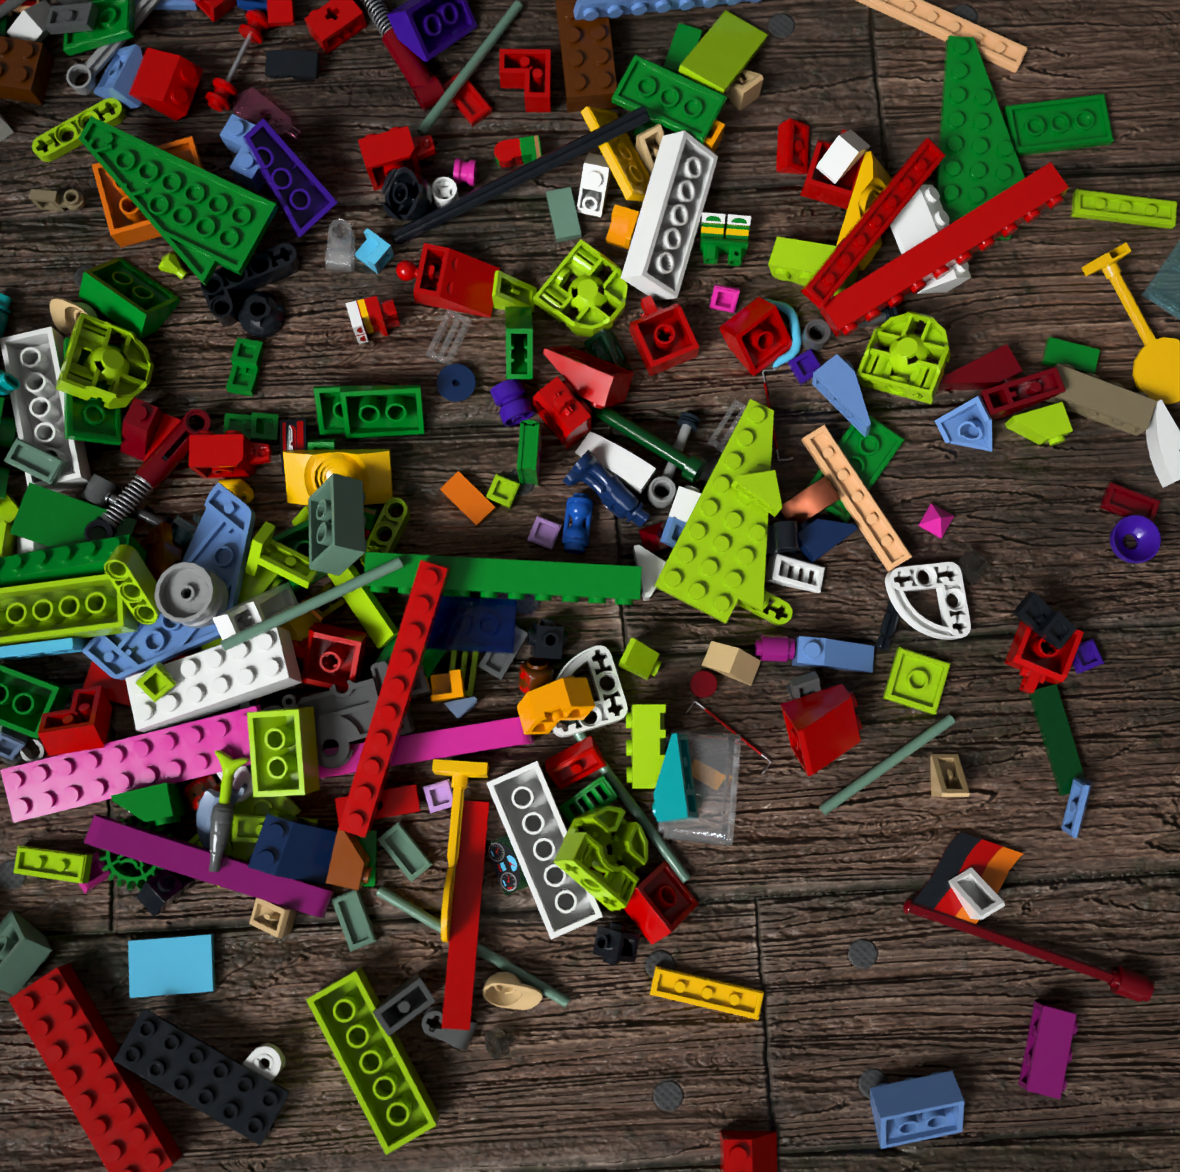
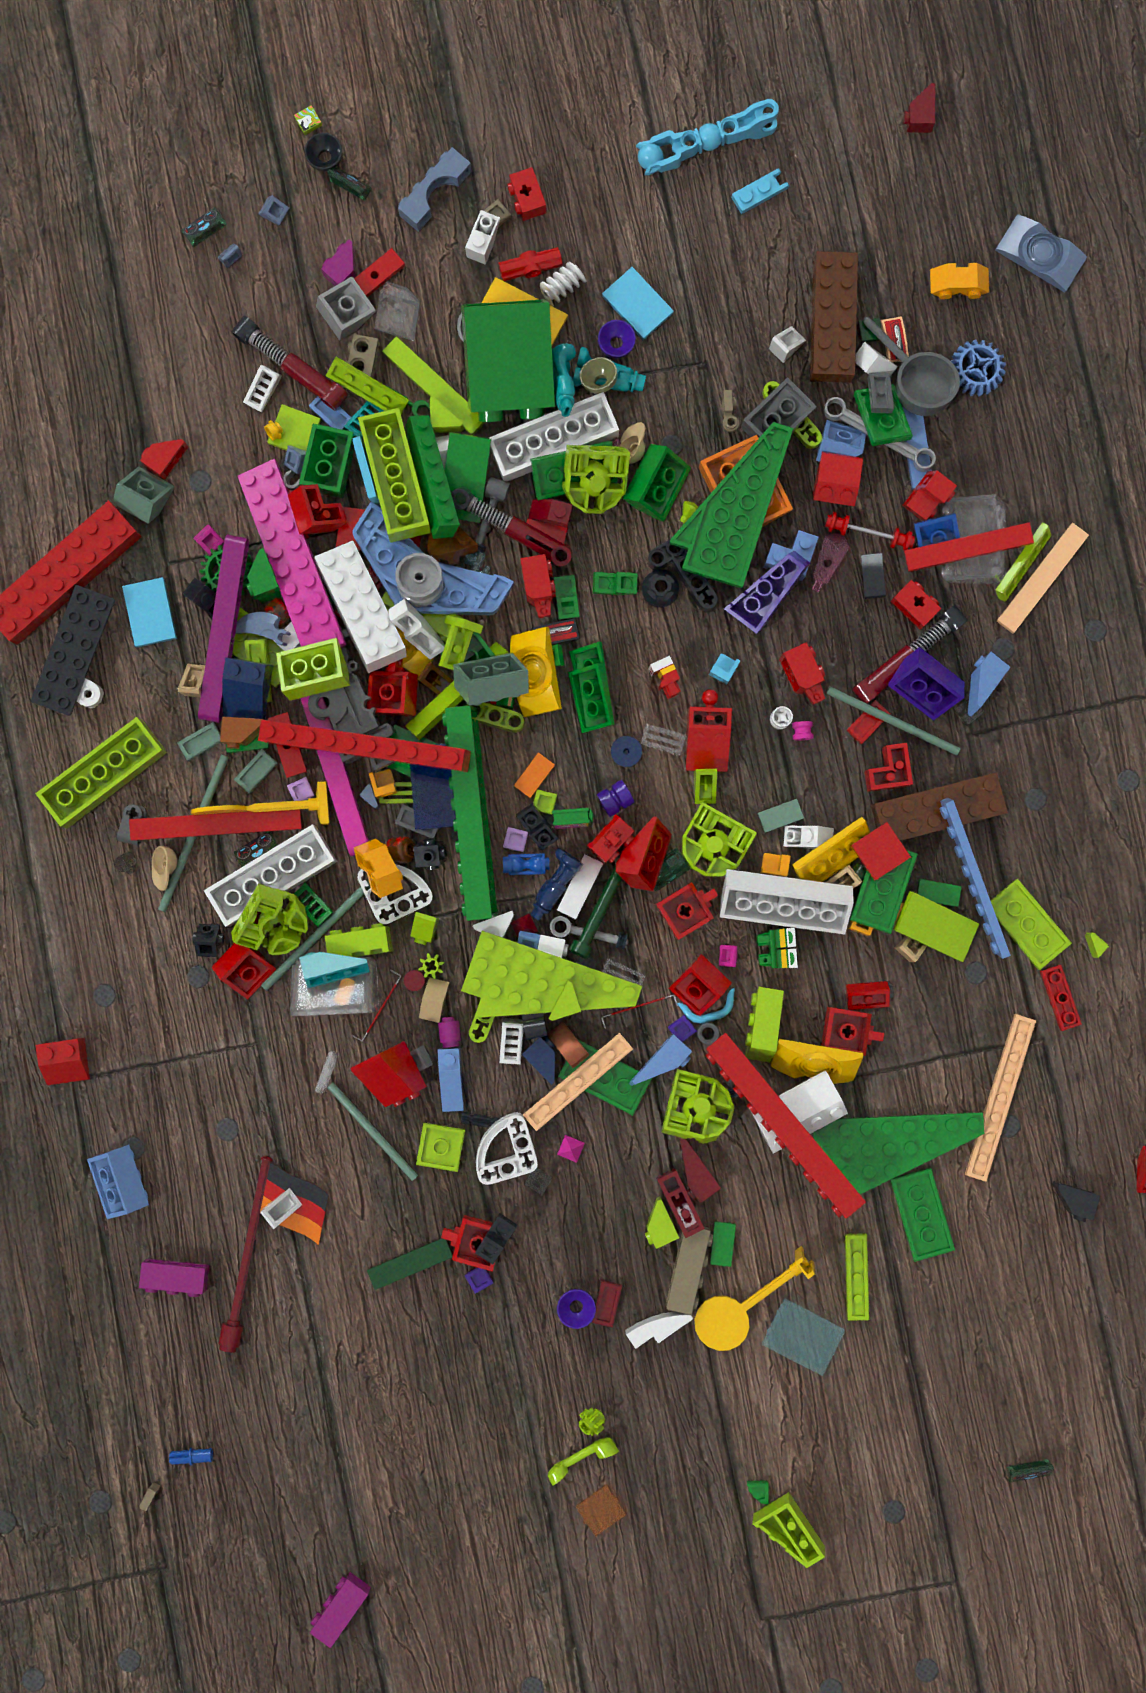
camera: 85 degrees right, 5 degrees up
(35, 461) = (508, 440): sand green tile -> none
(53, 864) = (210, 511): lime tile -> none
(60, 130) = (784, 406): none -> dark grey slope
(133, 583) = (421, 535): lime beam -> none
(156, 681) = (351, 565): lime slope -> none
(223, 811) = (263, 632): dark grey piece -> none
(239, 488) = (516, 597): yellow arm -> none
(312, 604) = (424, 672): sand green piece -> none
(340, 251) = (718, 641): clear piece -> none
(403, 1004) = (142, 788): dark grey slope -> none
(406, 194) = (773, 687): black cylinder -> none
(517, 151) = (825, 765): leg -> none
(519, 343) = (663, 796): green slope -> none
(521, 175) = (801, 777): black axle -> none
(532, 503) = (537, 826): none -> black slope
(575, 763) = (339, 889): red slope -> none
(626, 90) = (880, 851): none -> red tile
(686, 651) = (425, 967): none -> lime gear
(706, 992) = (182, 1014): yellow tile -> none
(806, 811) = (326, 1072): none -> clear tile
(842, 155) = (856, 1035): white slope -> none
(873, 223) = (800, 1066): red tile -> none
(947, 776) = (368, 1178): tan slope -> none
(967, 425) = (650, 1164): medium blue slope -> none
(1076, 806) = (358, 1282): medium blue slope -> none

